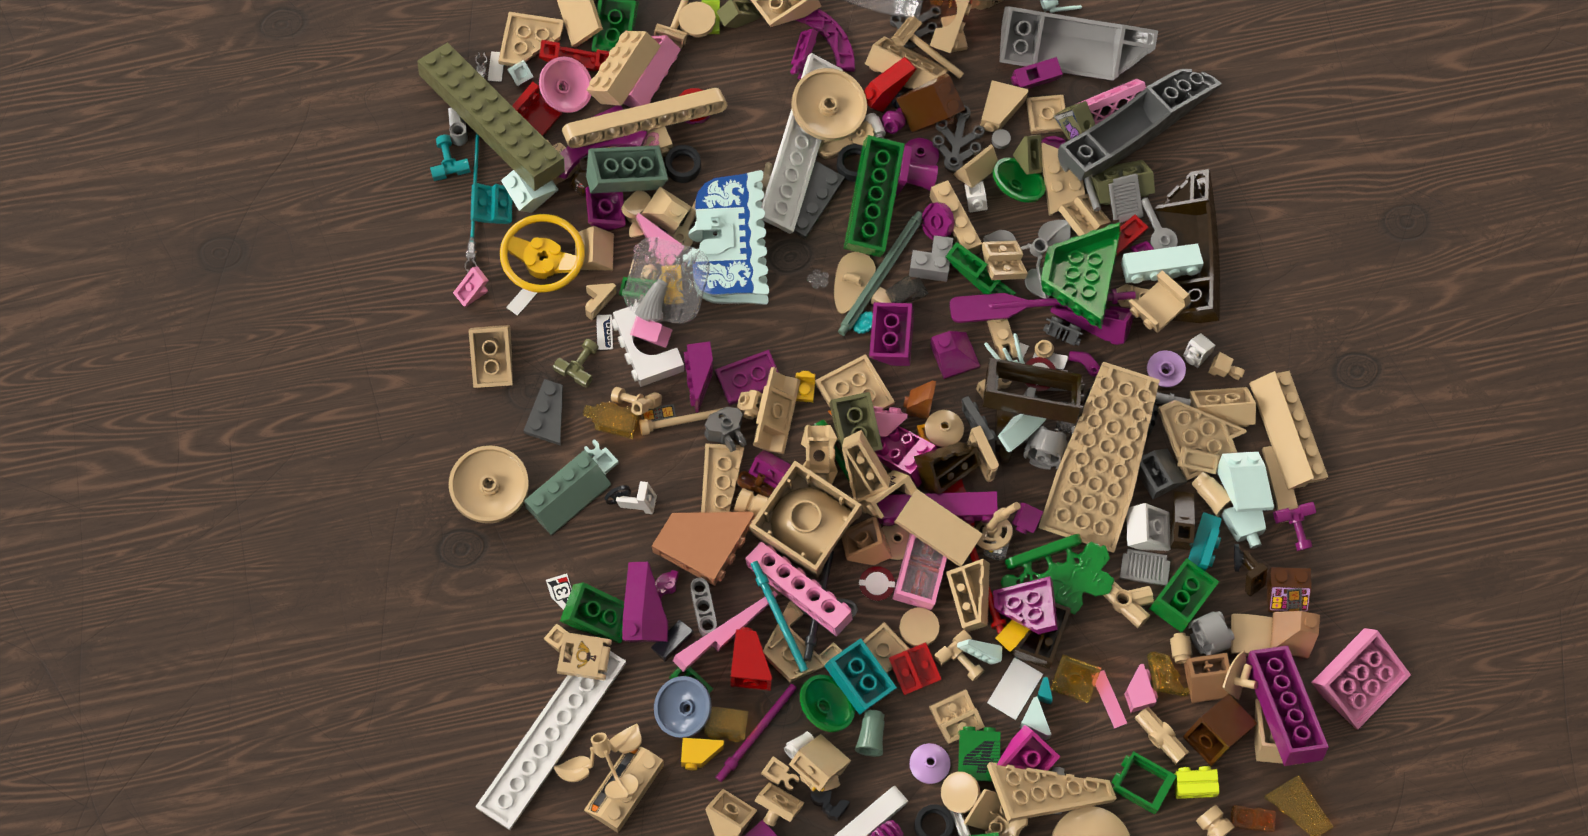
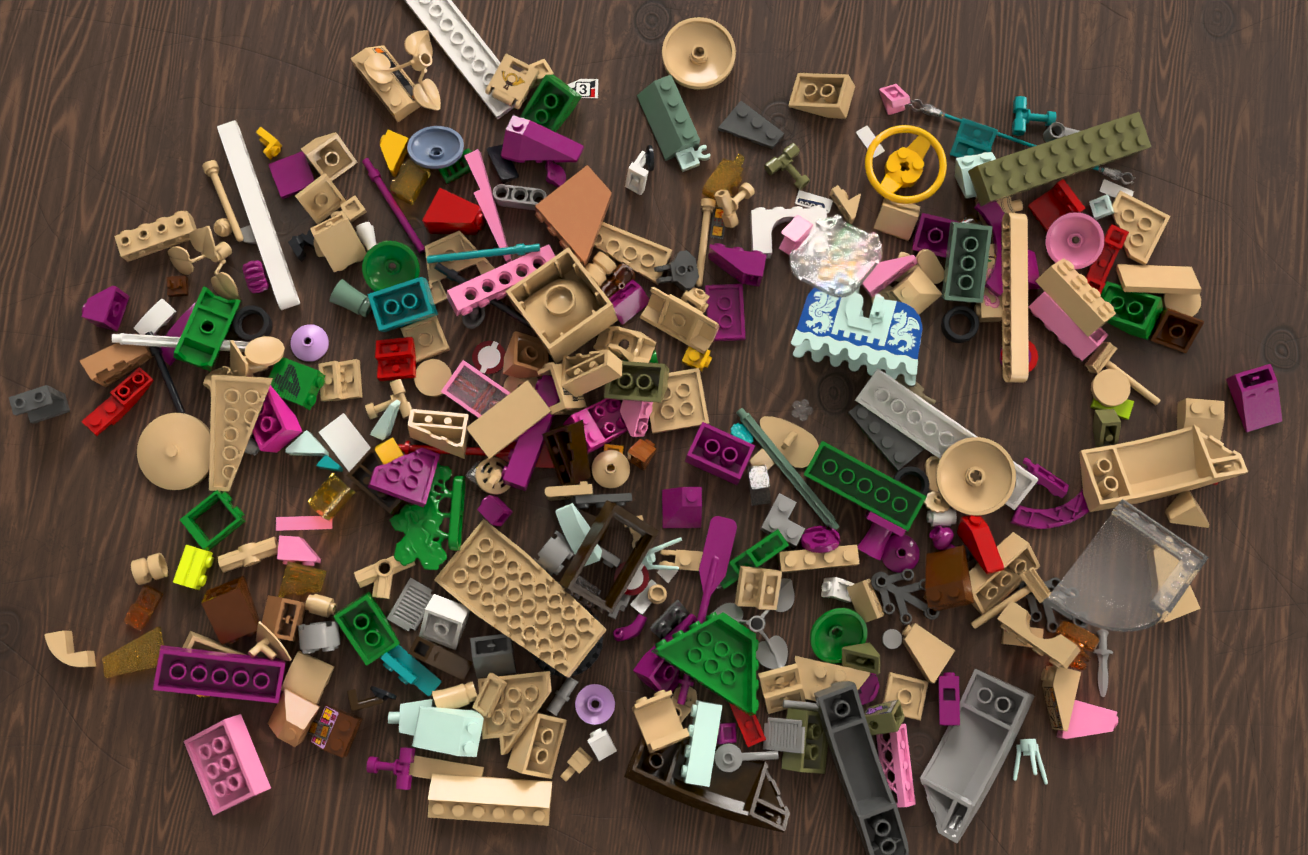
camera: 110 degrees right, 10 degrees up
(651, 304) = (816, 235): light grey piece -> none

